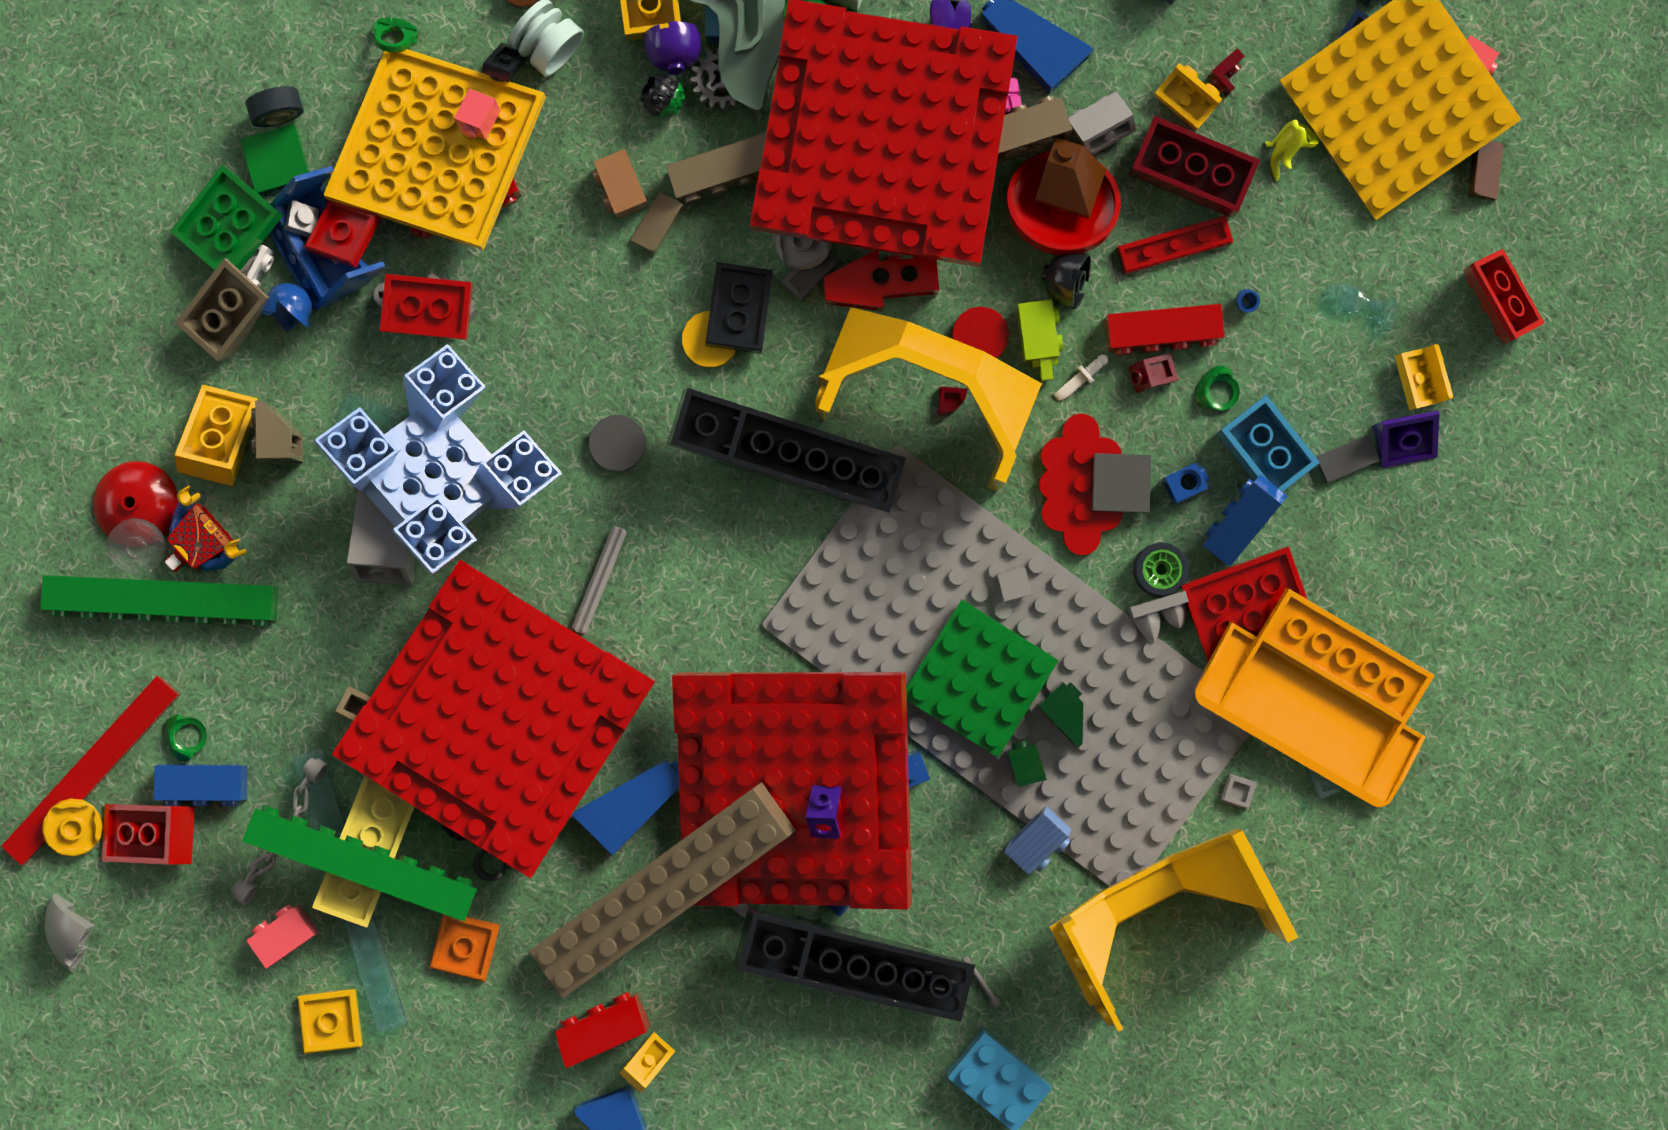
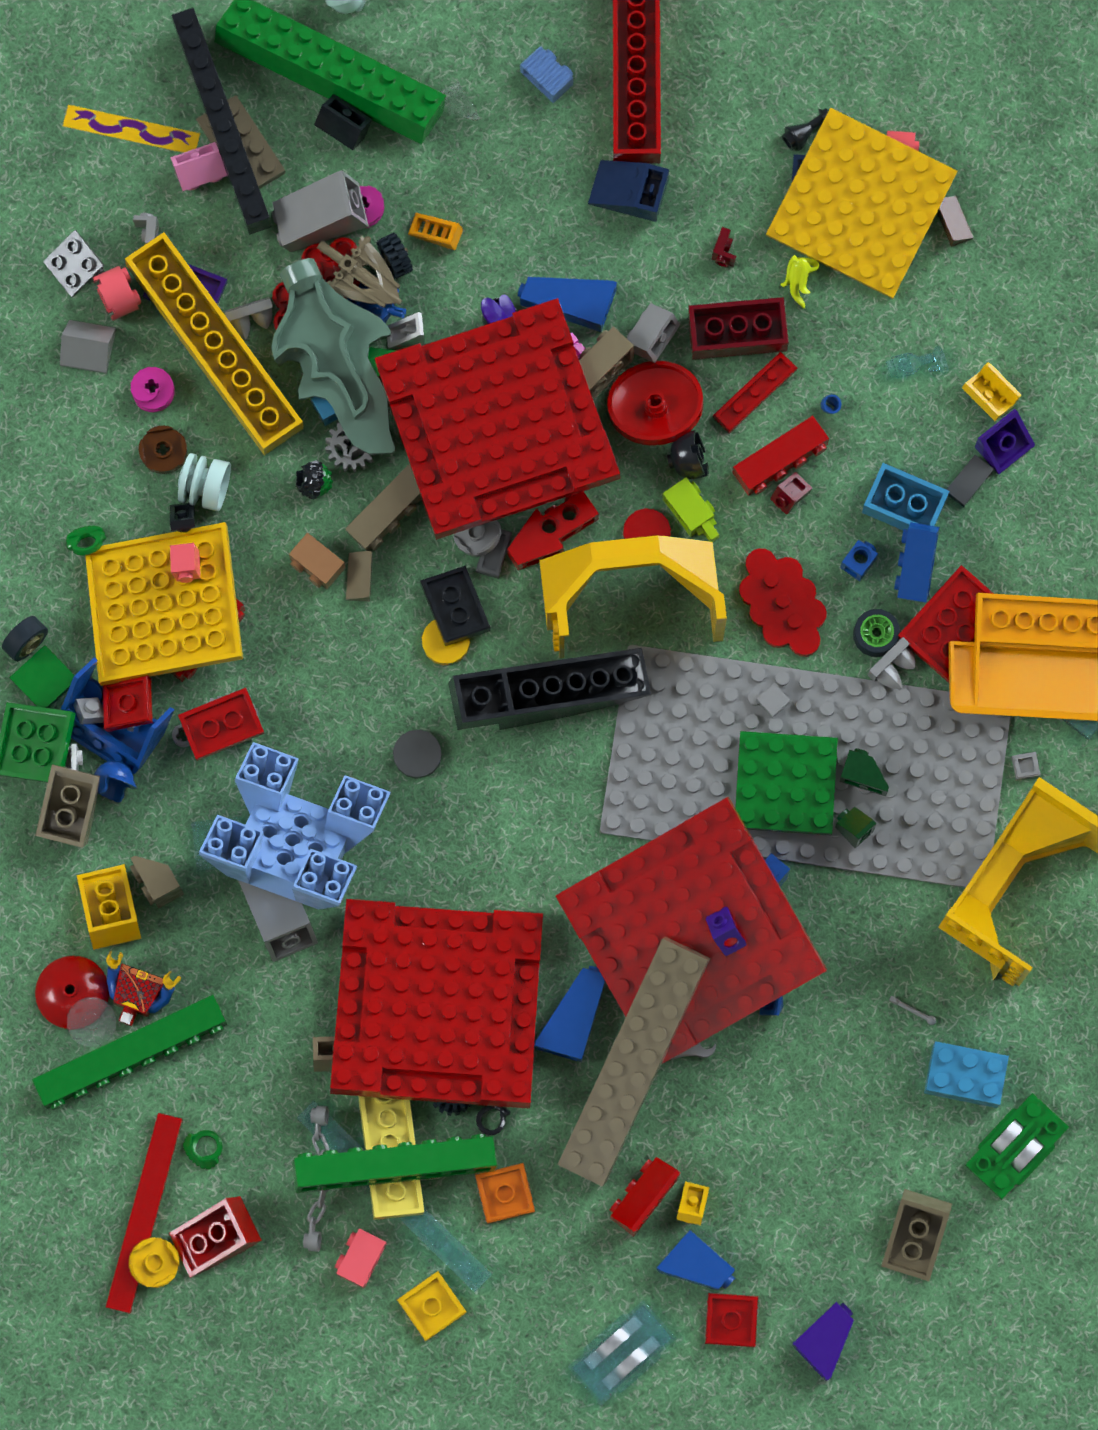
camera: 25 degrees left, 10 degrees down
(66, 932) = (192, 1345): light grey brick -> none
(200, 784) = (236, 1175): blue brick -> none
(599, 580) = (458, 862): light grey axle -> none
(673, 47) = (304, 440): dark purple cylinder -> none
(853, 964) = (808, 1041): black slope -> none
(950, 399) = (650, 591): dark red tile -> none
(1038, 840) = (896, 879): medium blue brick -> none
(1070, 179) = (652, 383): reddish brown slope -> none
(1083, 376) = (740, 521): white piece -> none
(1121, 483) = (811, 584): dark grey tile -> none
(1188, 96) = (705, 280): yellow bracket -> none
(1216, 373) = (839, 469): green piece -> none
(1503, 296) = (1016, 303): red slope -> none

